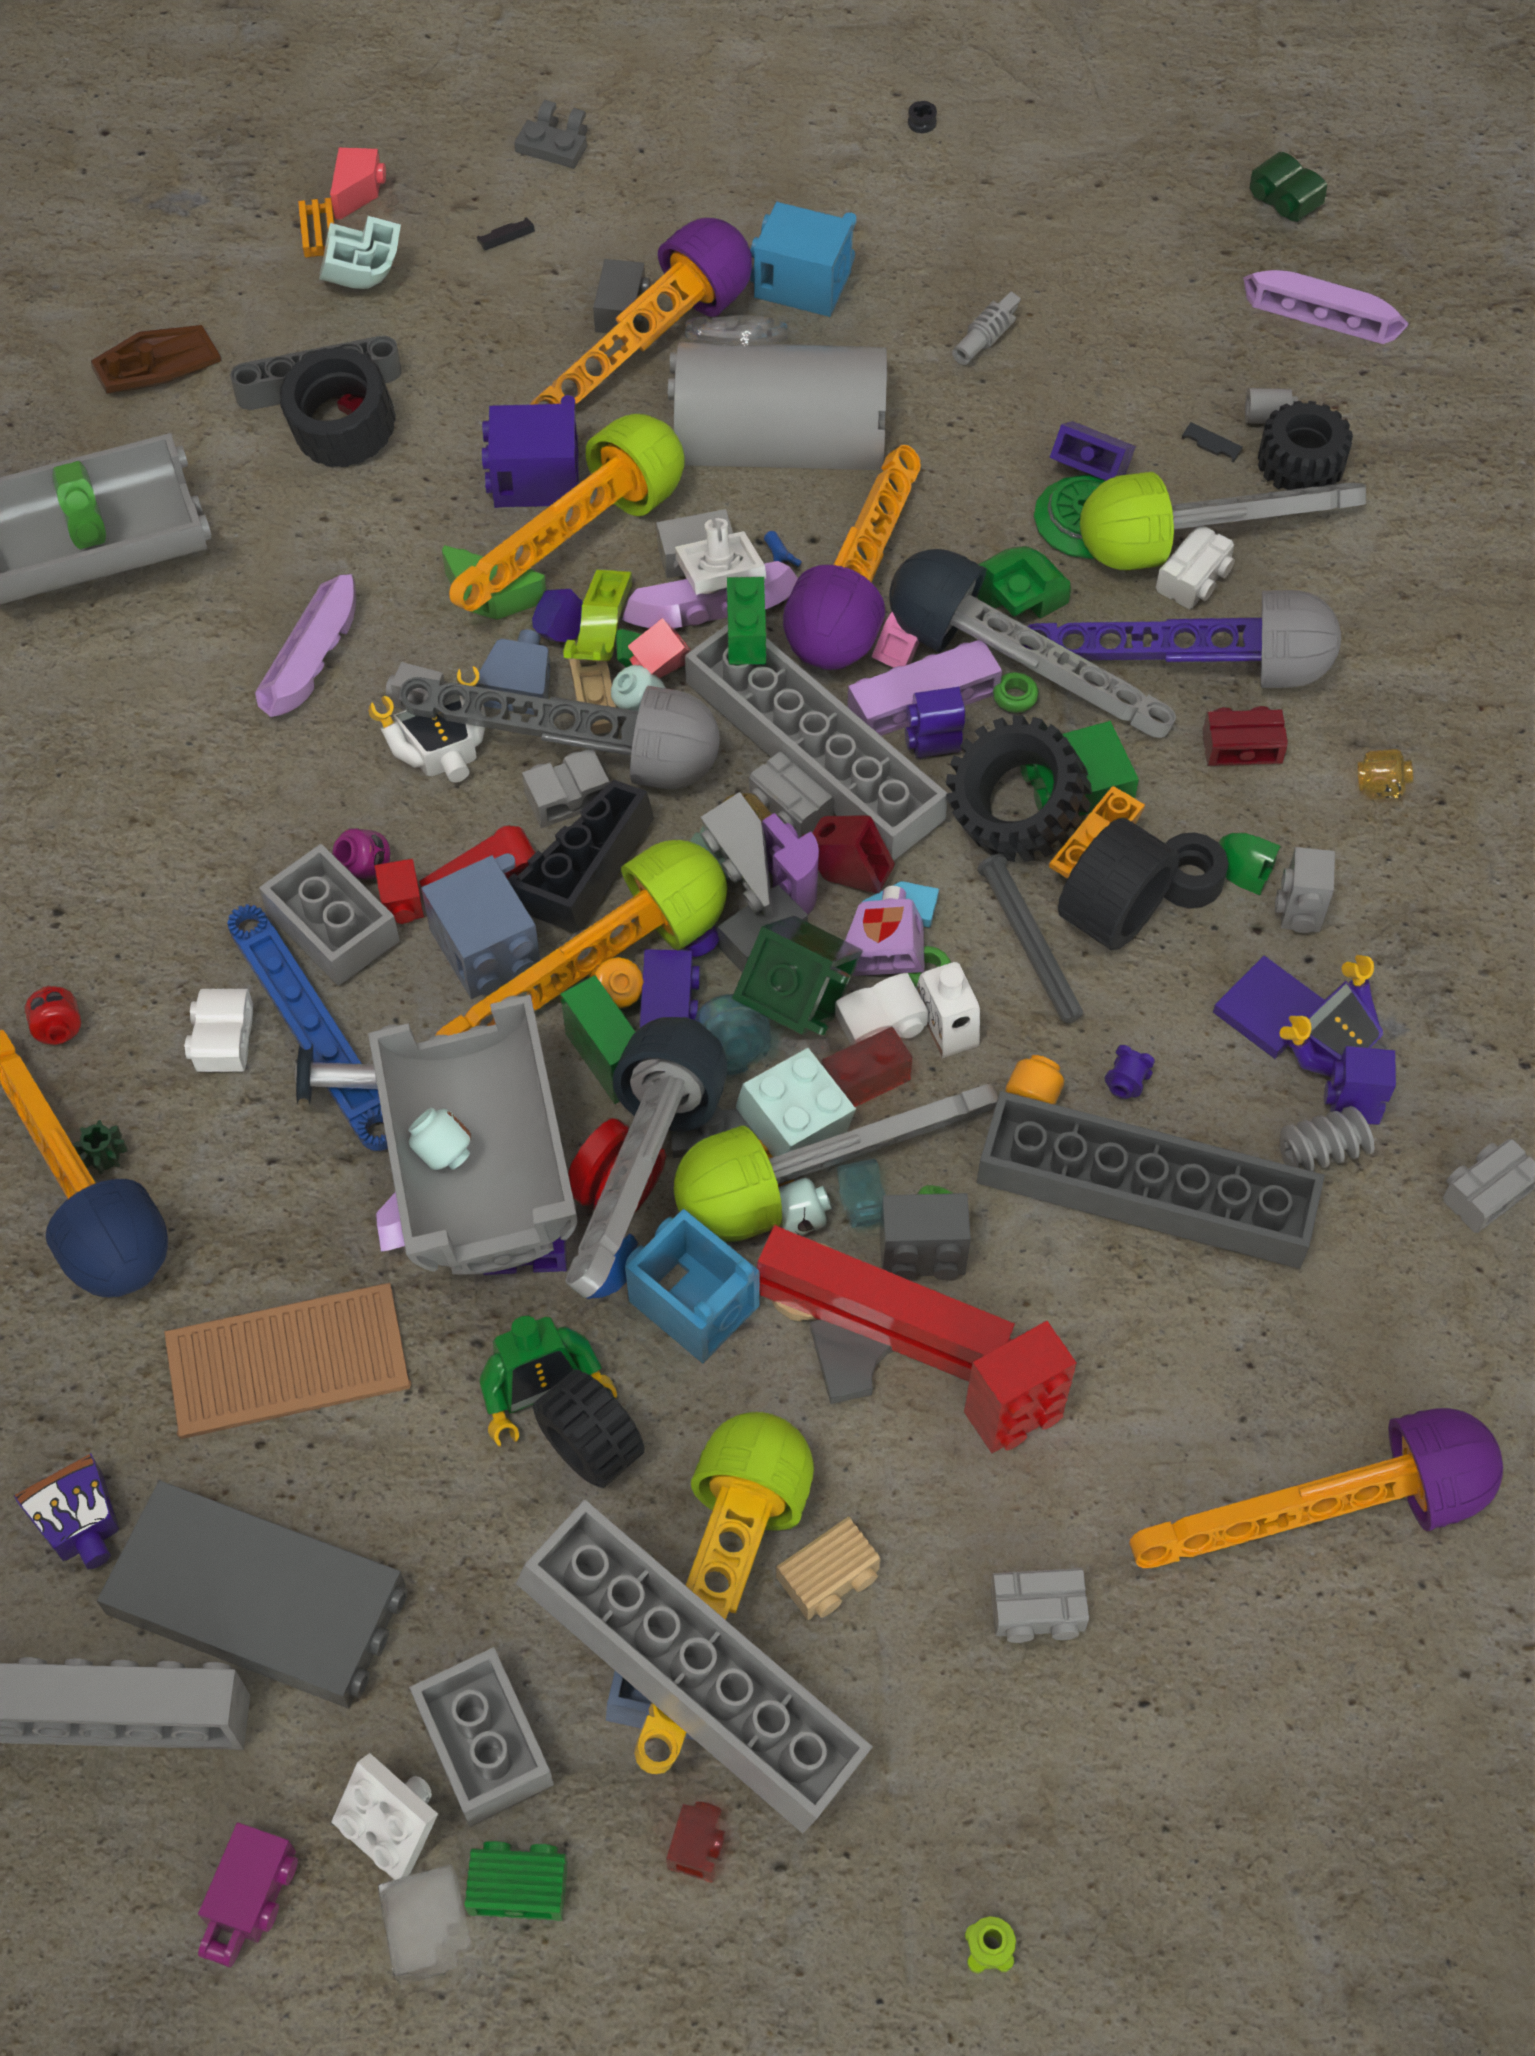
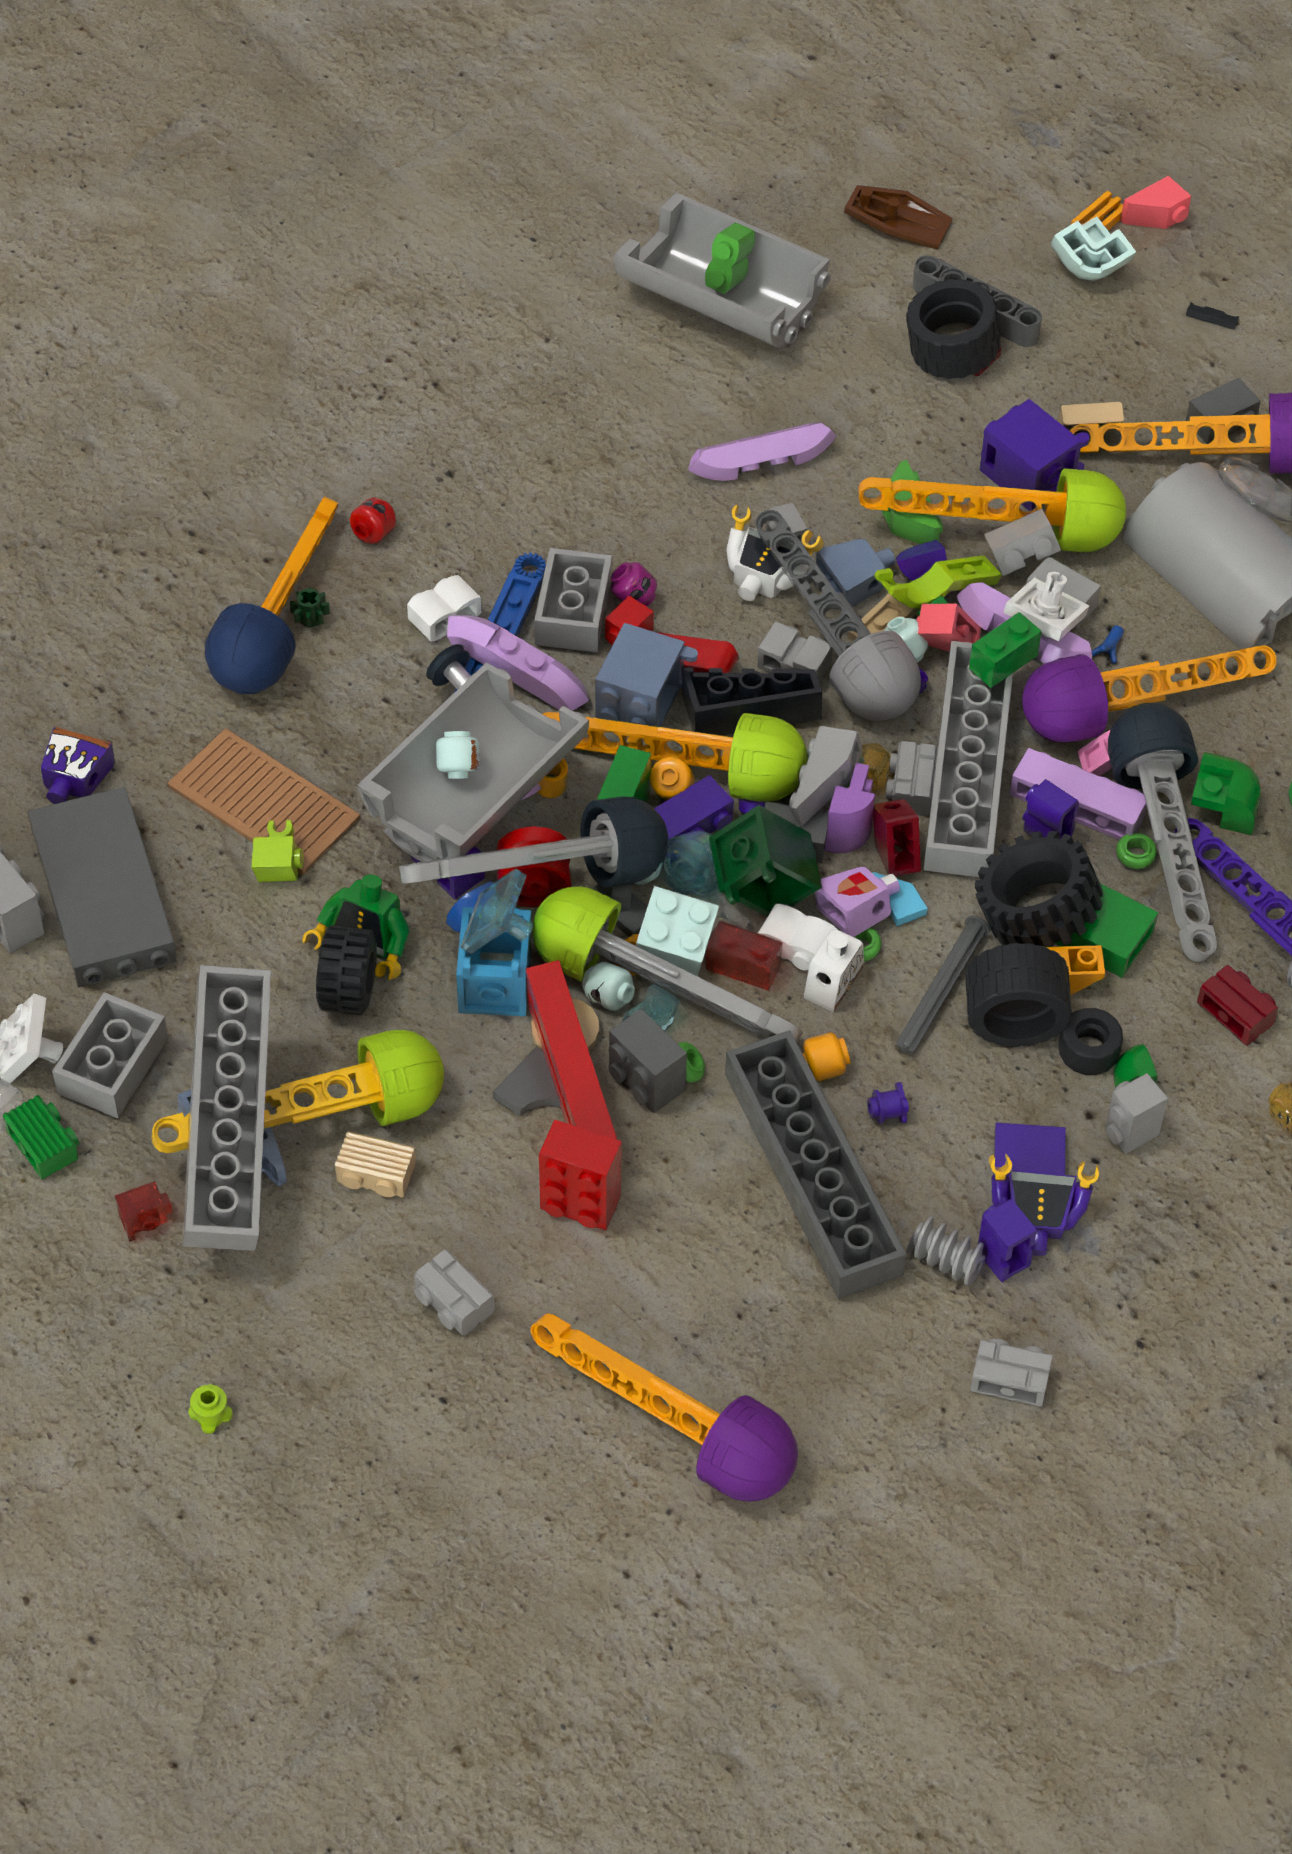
camera: 50 degrees right, 5 degrees down
(353, 1012) = (525, 663): none -> lavender brick
(378, 1395) = (277, 856): none -> lime brick
(533, 381) = (1091, 413): none -> tan slope
(619, 529) = (1022, 539): none -> light grey brick
(677, 1240) = (496, 914): none -> clear light blue tile

